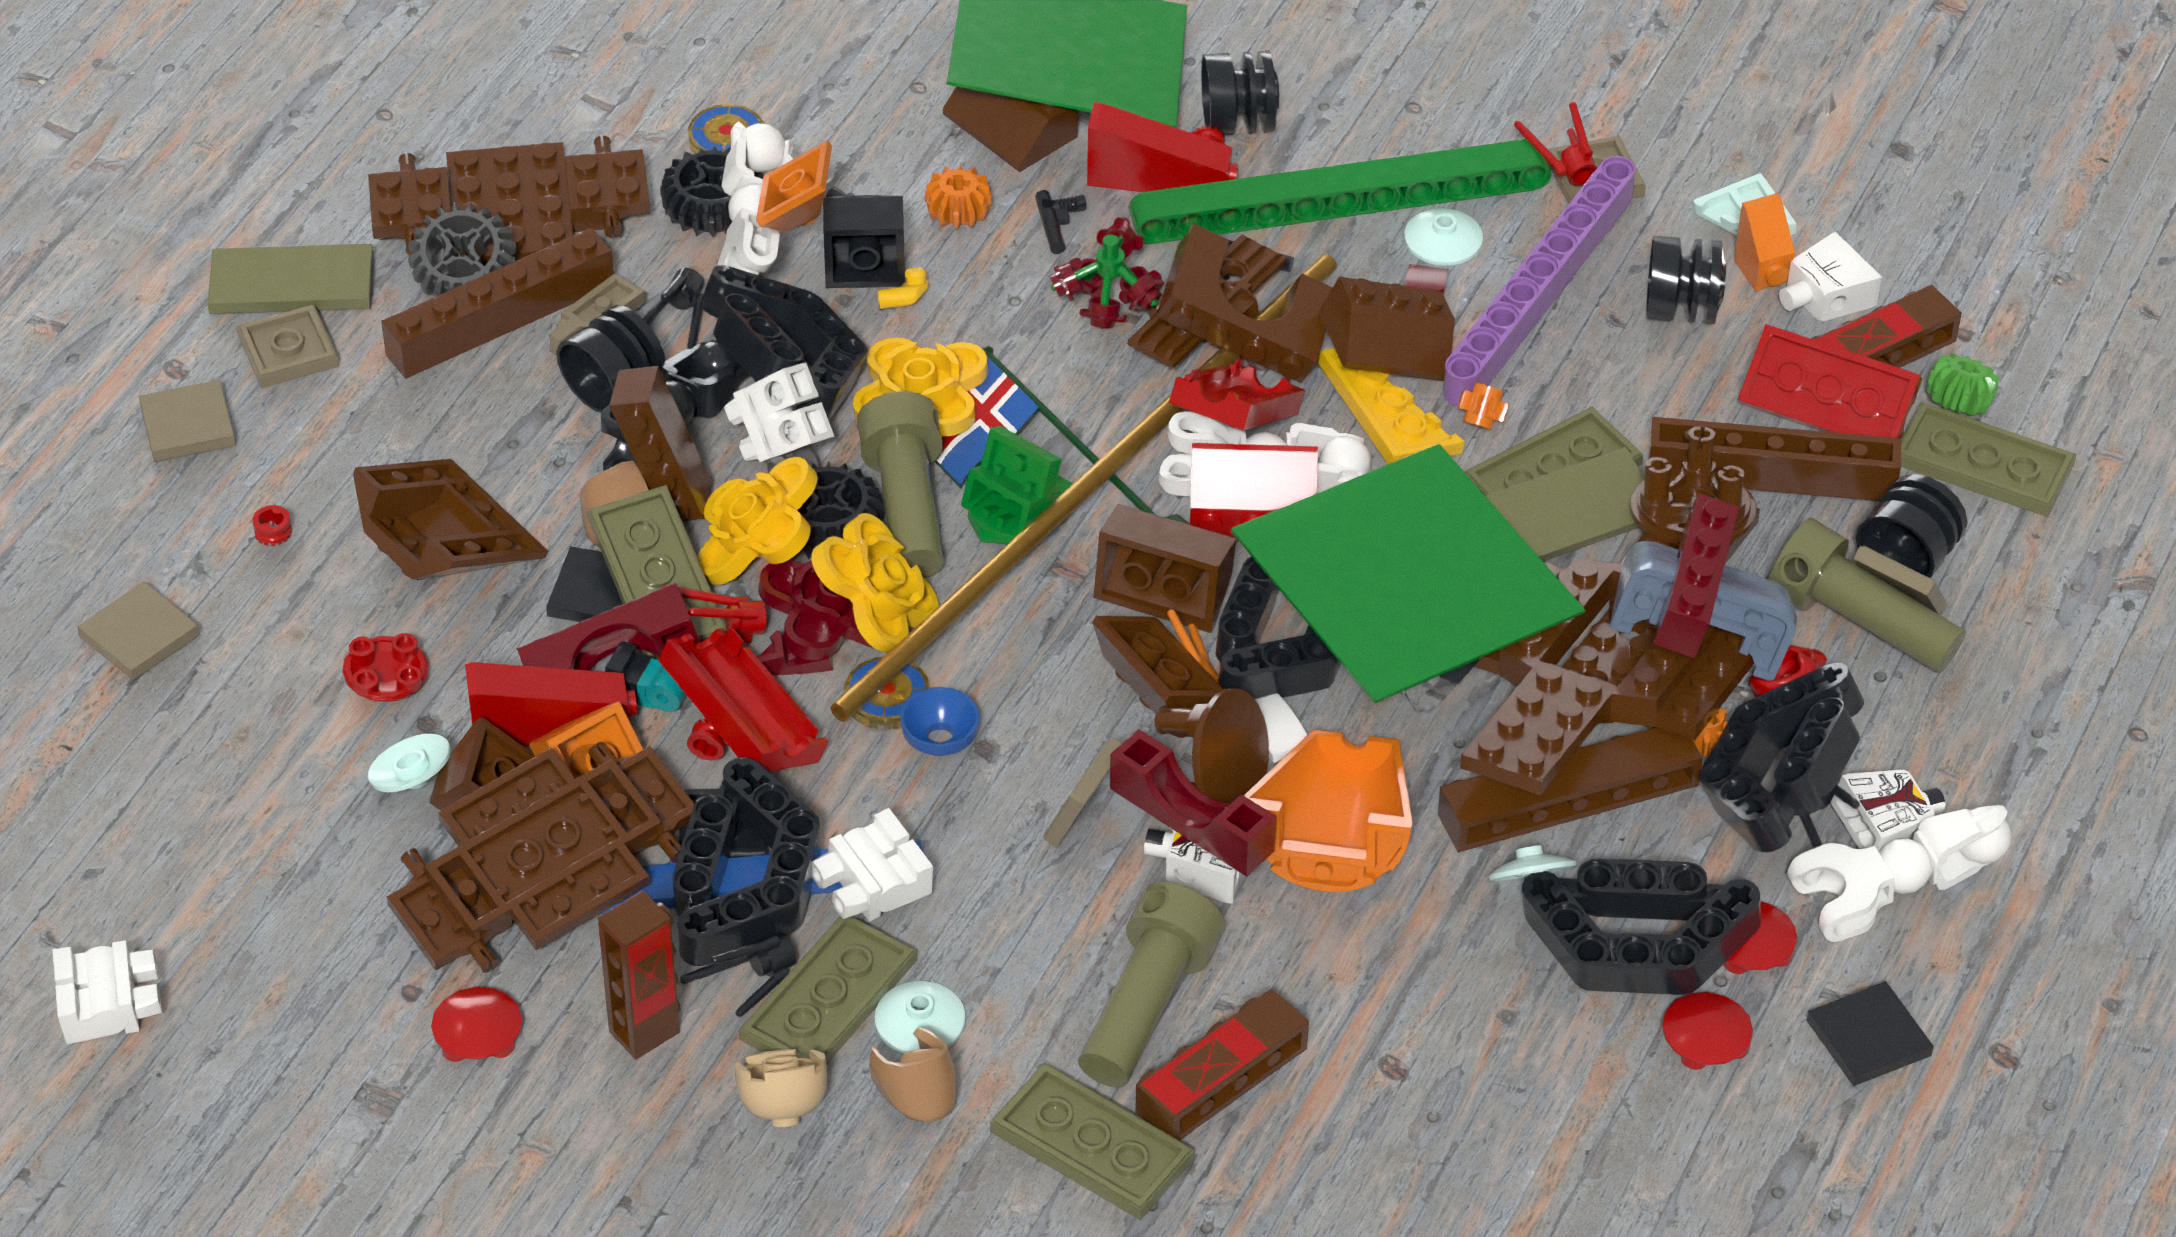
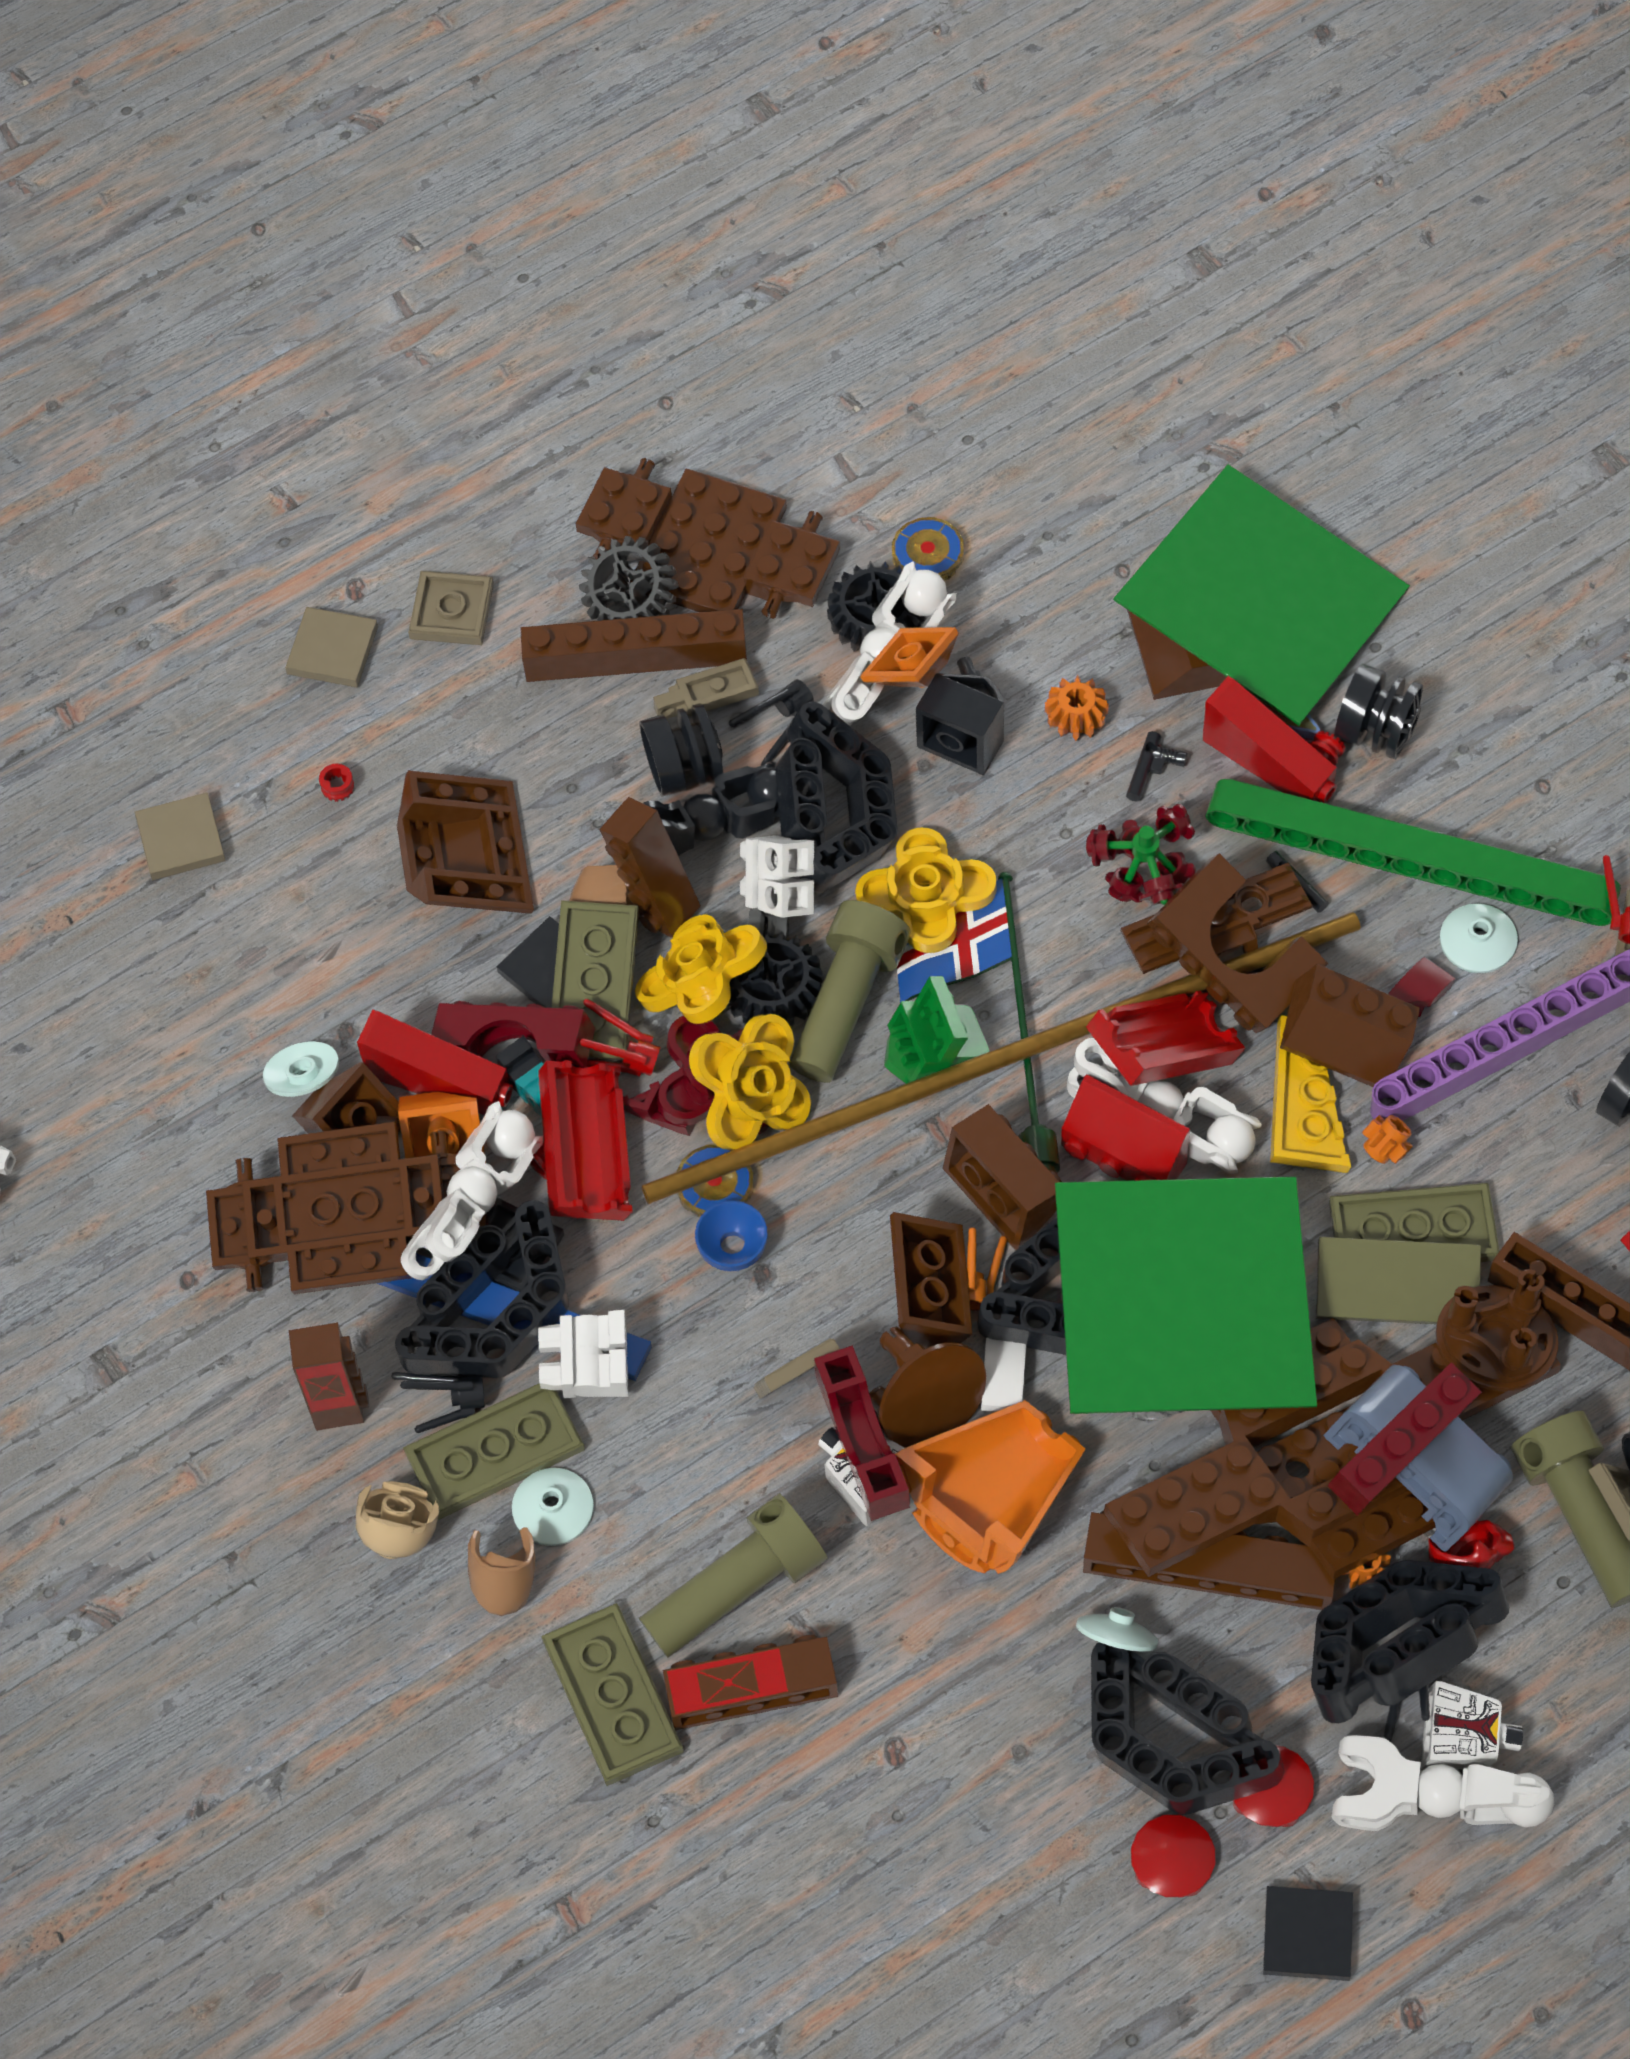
camera: 35 degrees right, 15 degrees up
(290, 278) = (492, 541): olive tile -> none
(385, 667) = (340, 964): red dish -> none
(476, 1024) = (214, 1337): red dish -> none
(671, 744) = (473, 1188): none -> white piece
(908, 293) = (977, 787): yellow arm -> none

